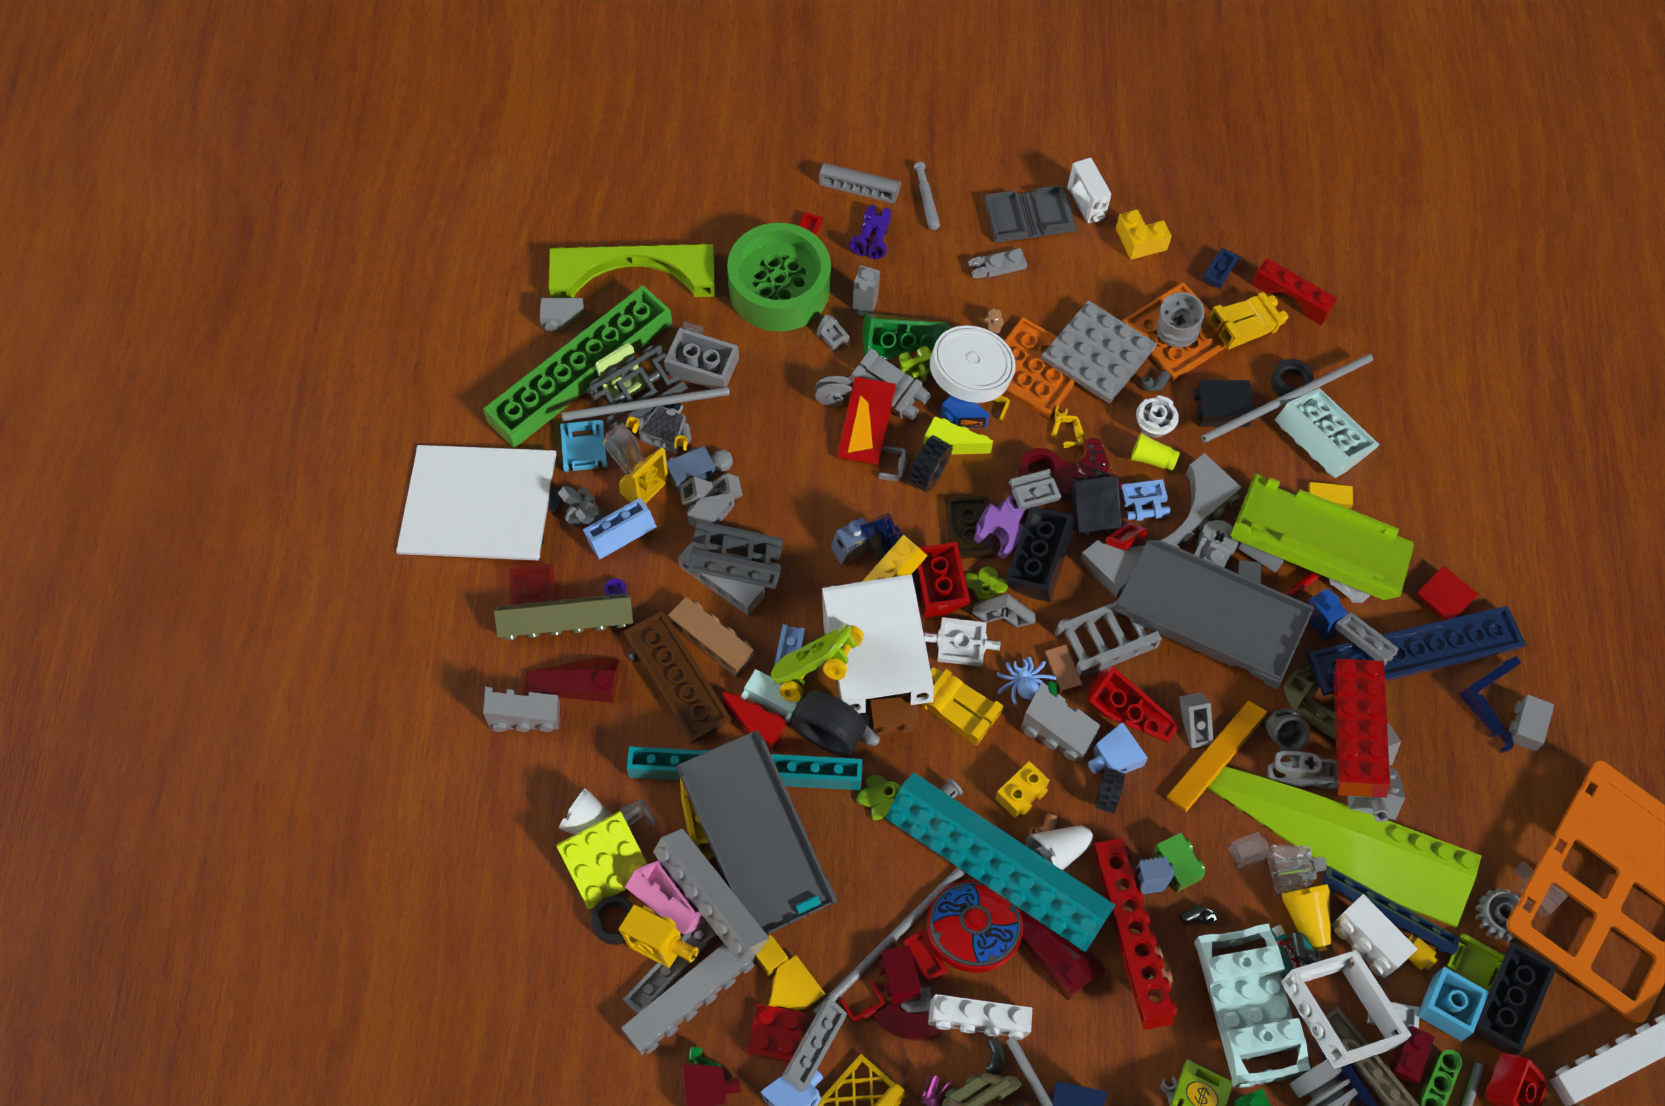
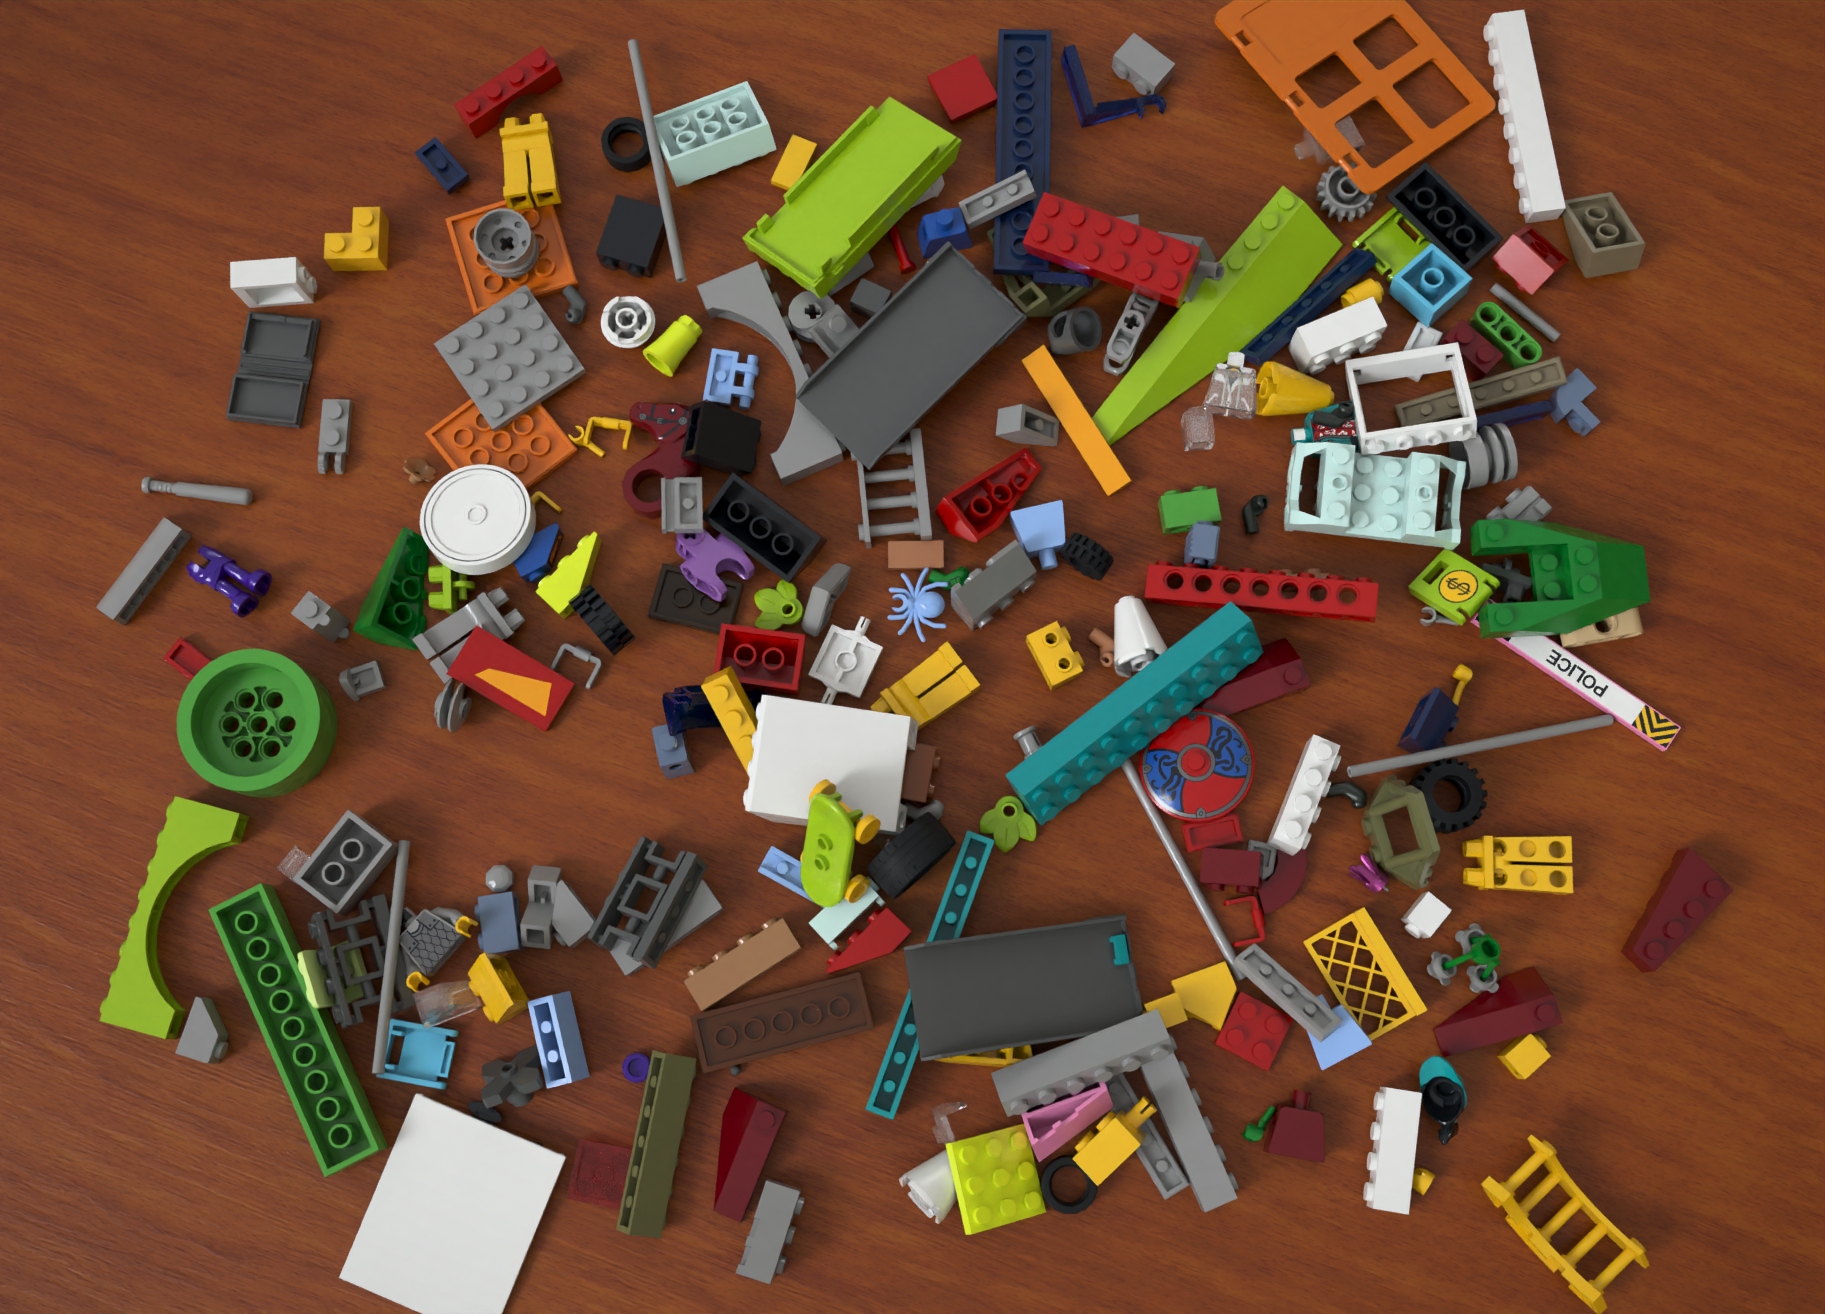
camera: 65 degrees left, 15 degrees up
(1126, 536) = (775, 419): red tile -> none
(1324, 706) = (1062, 279): none -> clear blue tile

